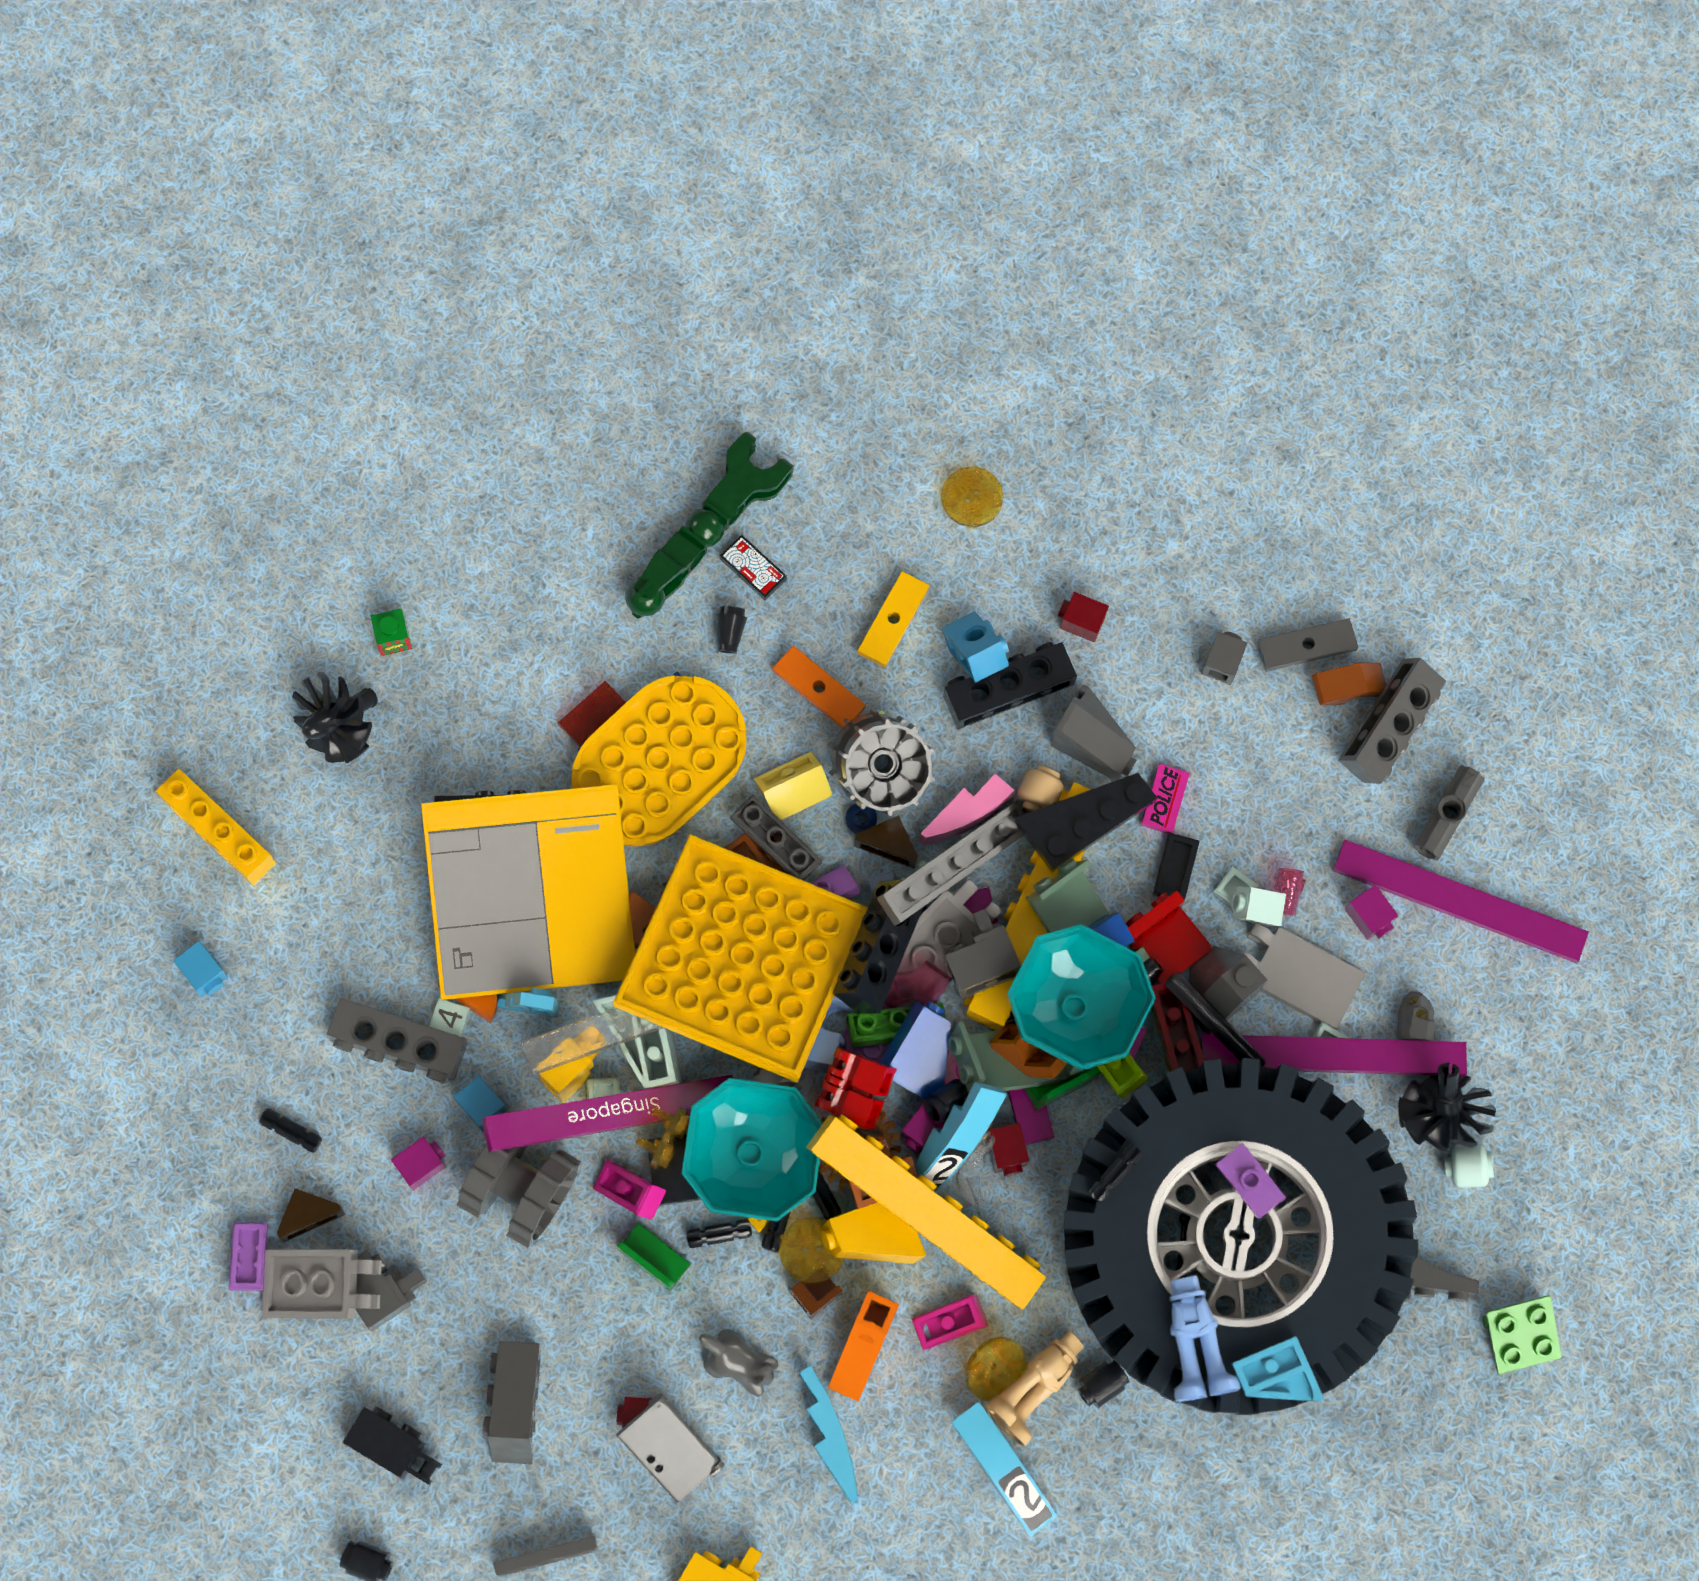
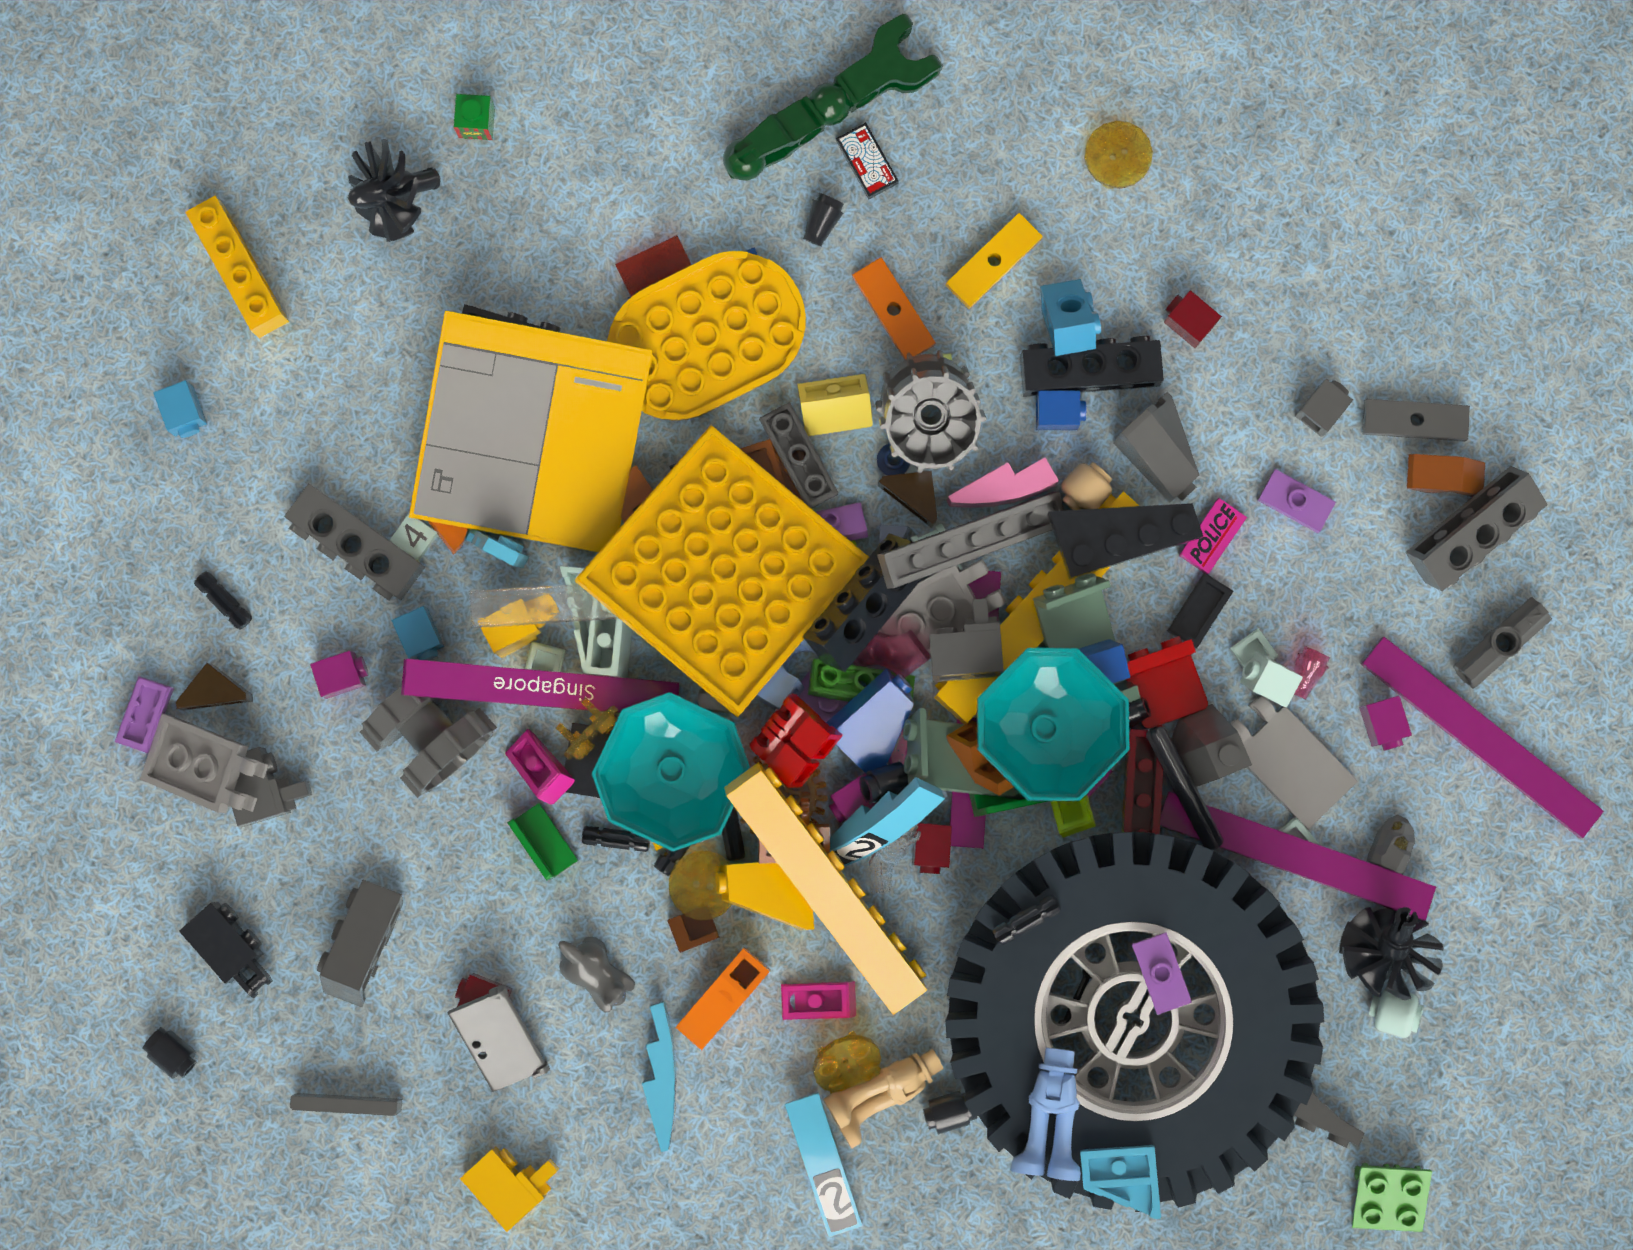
camera: 20 degrees right, 10 degrees up
(994, 730) = (1059, 410): none -> blue brick
(1228, 746) = (1296, 501): none -> medium lavender plate

